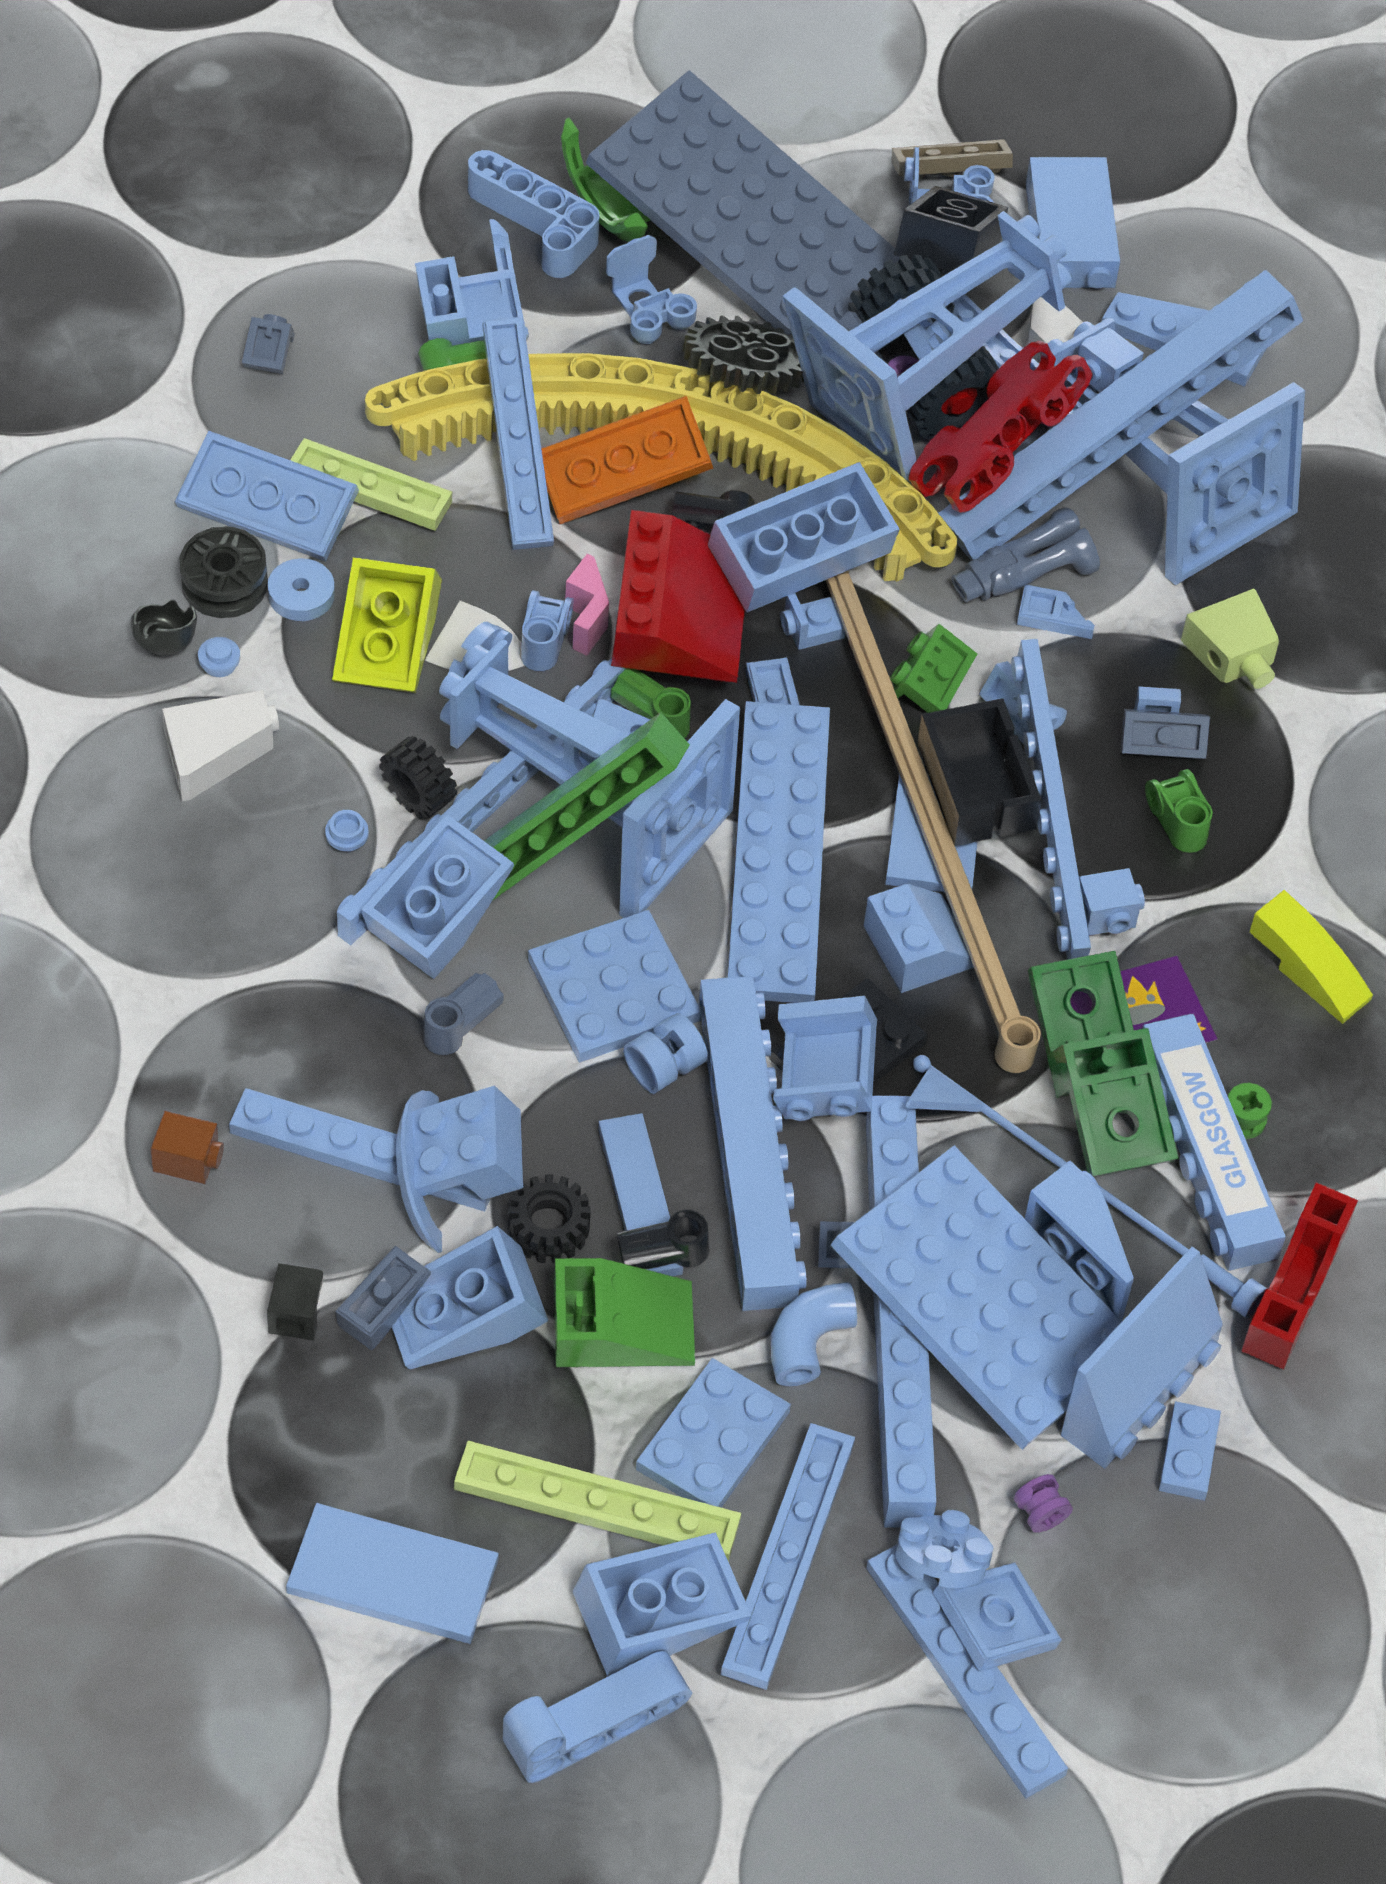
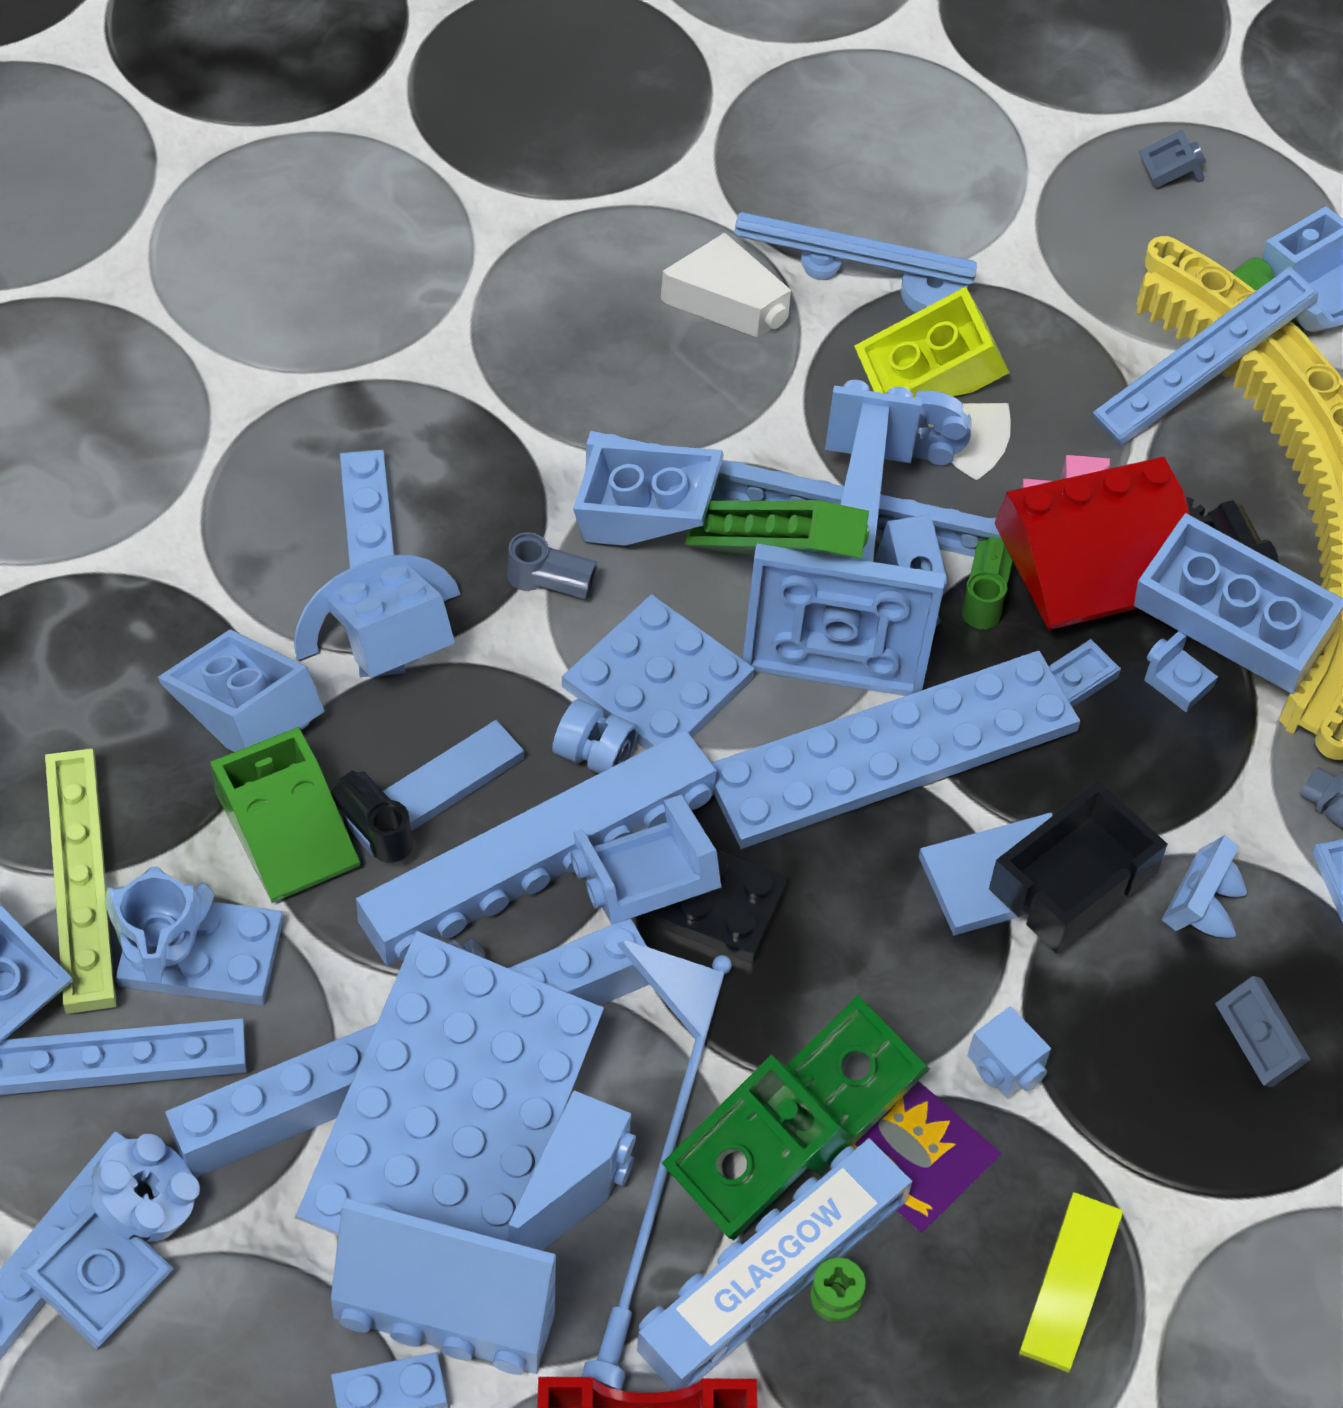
camera: 65 degrees right, 0 degrees up
(164, 627) = (819, 205): pearl dark grey hair -> none
(186, 1147) = (296, 431): dark orange brick -> none
(223, 572) = (909, 217): pearl dark grey wheel -> none
(236, 622) = (855, 248): none -> light blue axle
(267, 495) = (1010, 223): light blue tile -> none
(294, 1302) = (174, 560): pearl dark grey panel -> none
(346, 830) = (697, 415): light blue plate -> none
(379, 486) = (1078, 287): yellowish green plate -> none
(381, 1298) = (211, 626): sand blue slope -> none
(418, 777) = (774, 432): black tyre -> none
(544, 630) = (1005, 465): light blue piece -> none
(554, 1196) = (364, 700): black tyre -> none
(624, 460) = (1243, 449): orange tile -> none
(701, 1442) = (157, 919): none -> light blue piece
(802, 1325) = (341, 970): light blue cylinder -> none
(915, 936) = (866, 901): light blue slope -> none
(933, 669) = (1190, 795): bright green bracket -> none
(1009, 1022) = (973, 884): tan piece -> none
(1043, 1503) = (250, 1266): medium lavender wheel -> none
(1053, 817) = (1101, 937): light blue plate -> none
(1158, 699) = (1294, 1005): light blue plate -> none
(1181, 810) = (1182, 1078): bright green piece -> none

